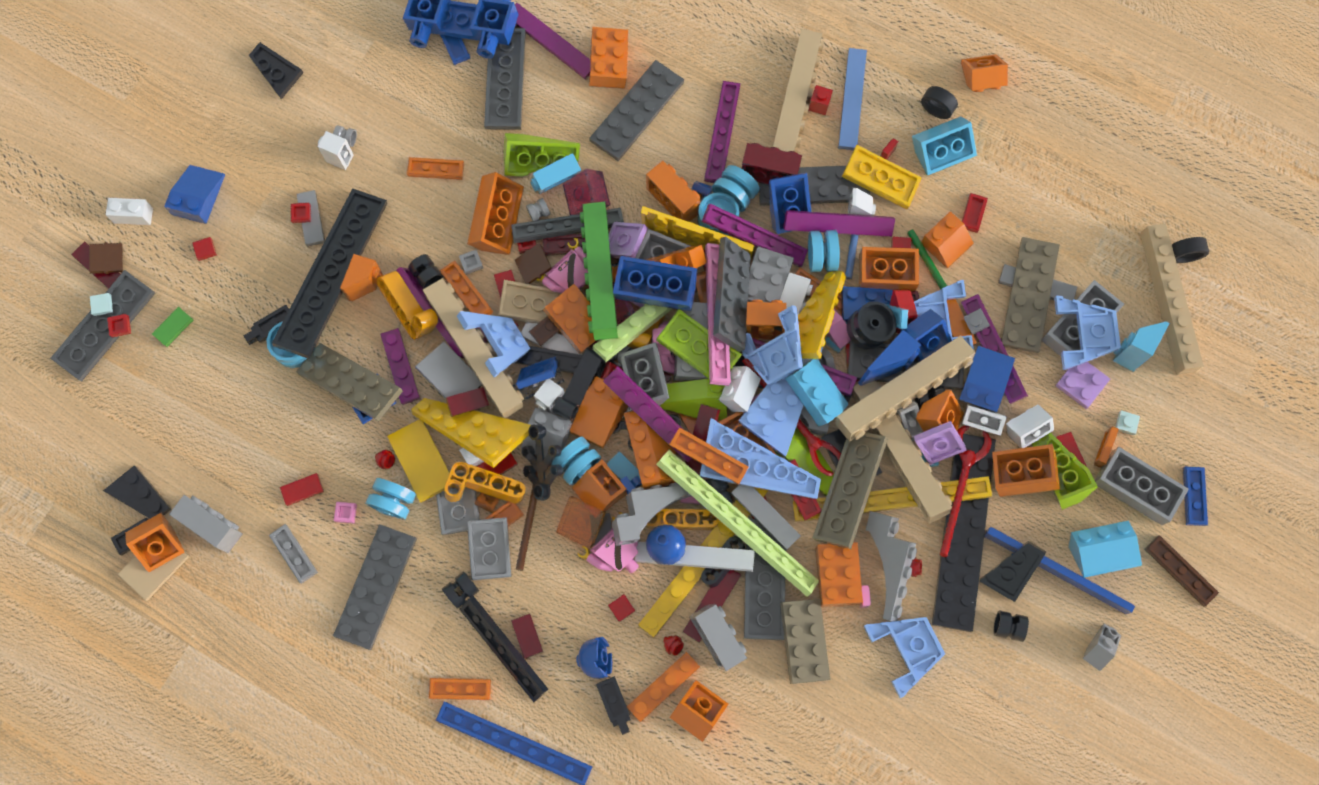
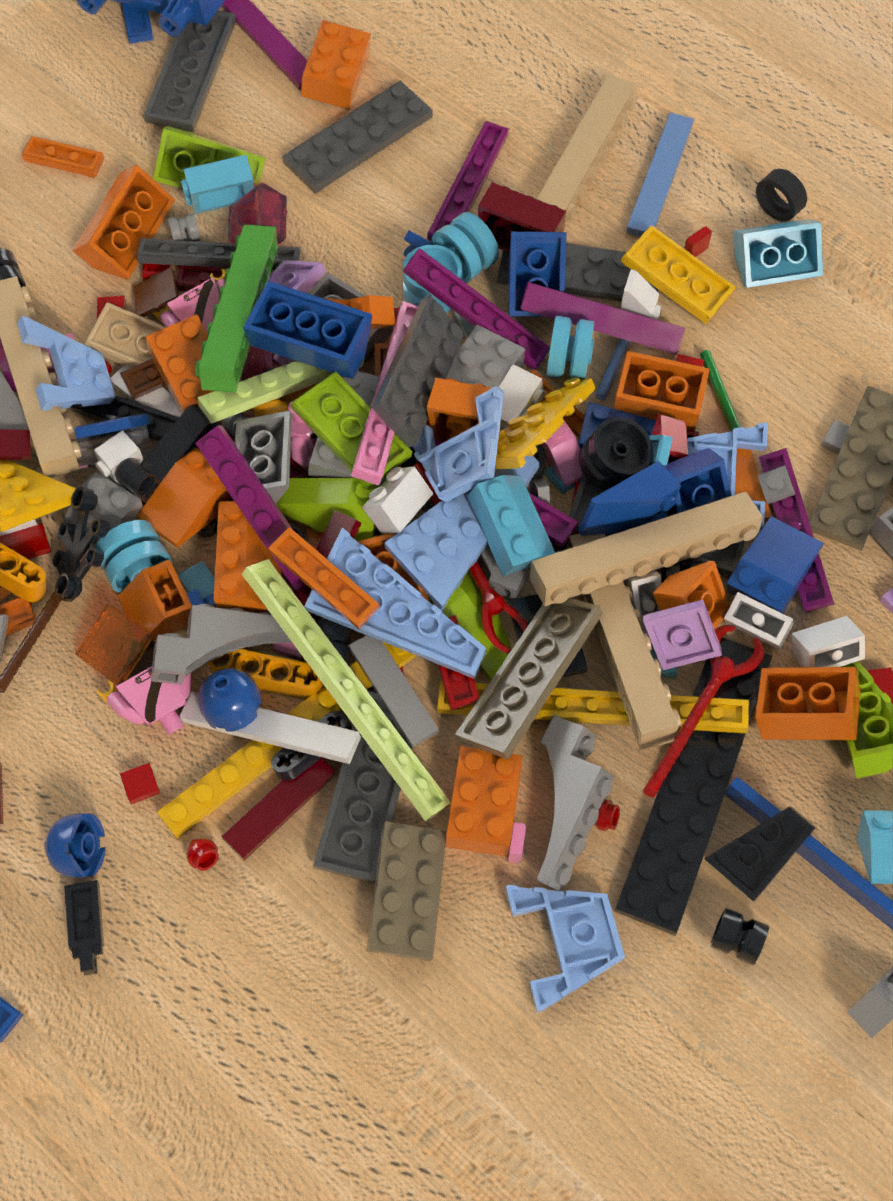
camera: 10 degrees right, 10 degrees down
(465, 289) = (49, 303): orange tile -> none
(471, 262) = (71, 276): light grey plate -> none
(663, 687) = (168, 915): orange plate -> none
(672, 192) = (375, 237): orange brick -> none
(686, 231) = (374, 279): yellow wing -> none
(699, 710) = (211, 961): orange slope -> none
(718, 636) = (271, 849): light grey brick -> none
(820, 100) = (614, 165): red brick -> none
(947, 240) = (756, 371): orange slope -> none
(974, 212) = (803, 346): red tile -> none
(985, 72) = (855, 174): orange slope -> none

